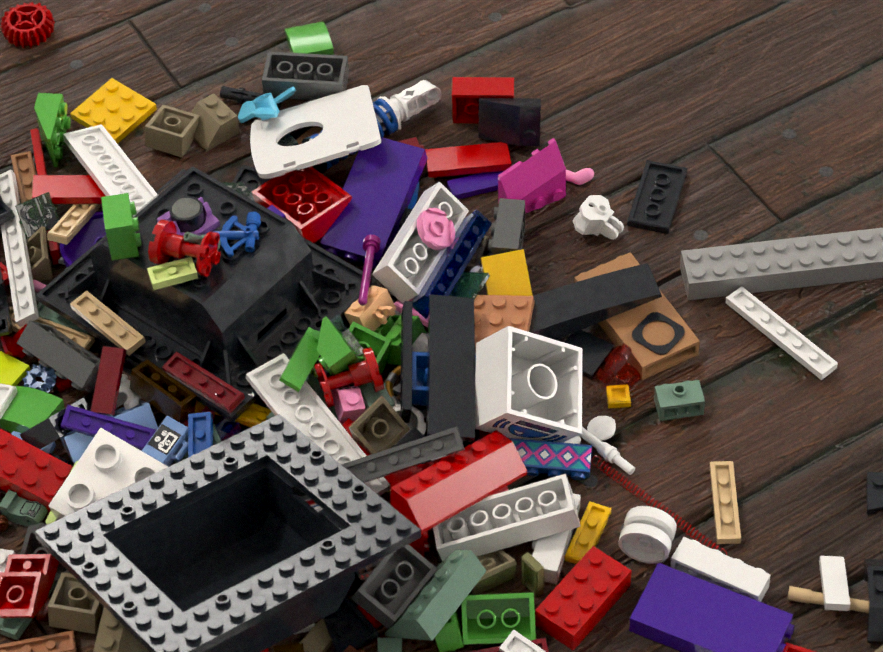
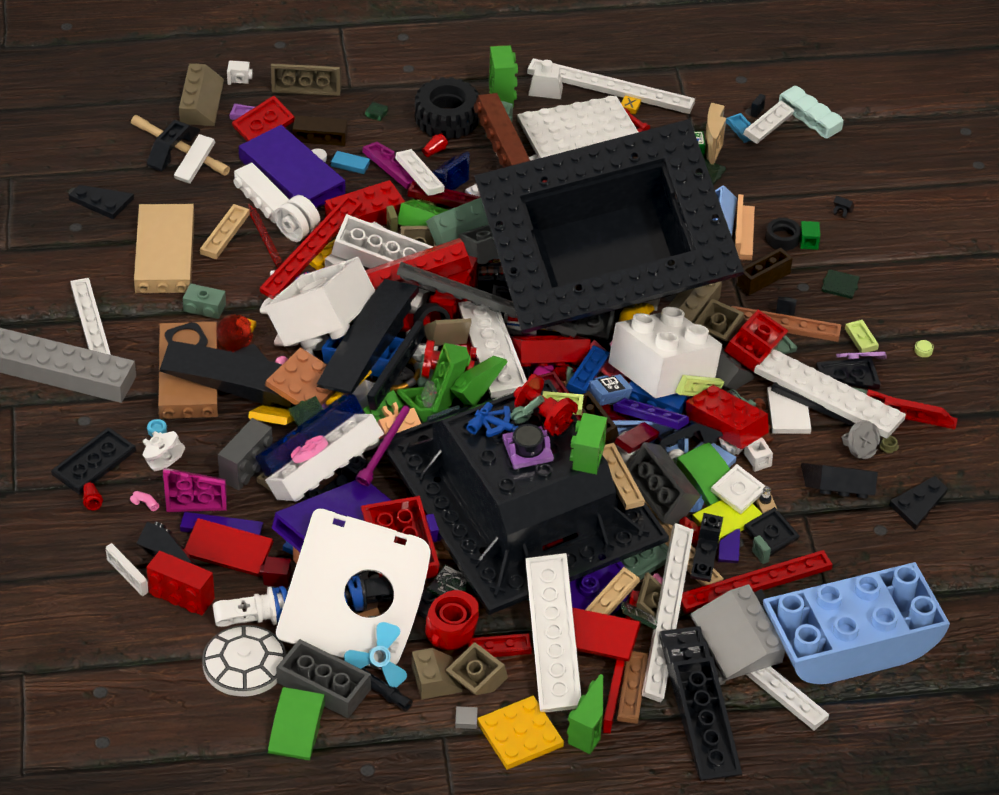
camera: 160 degrees left, 5 degrees down
(161, 175) = (505, 645): none -> red tile
(168, 100) = (466, 717): none -> light grey tile
(216, 152) = (452, 620): none -> red piece
(388, 72) = (243, 660): none -> white dish
(549, 106) = (127, 569): none -> white tile
(600, 493) = (310, 247): none -> red plate
(621, 248) = (156, 425): none -> medium azure tile
(628, 156) = (91, 497): none -> red cone
(773, 449) = (164, 248): none -> tan brick

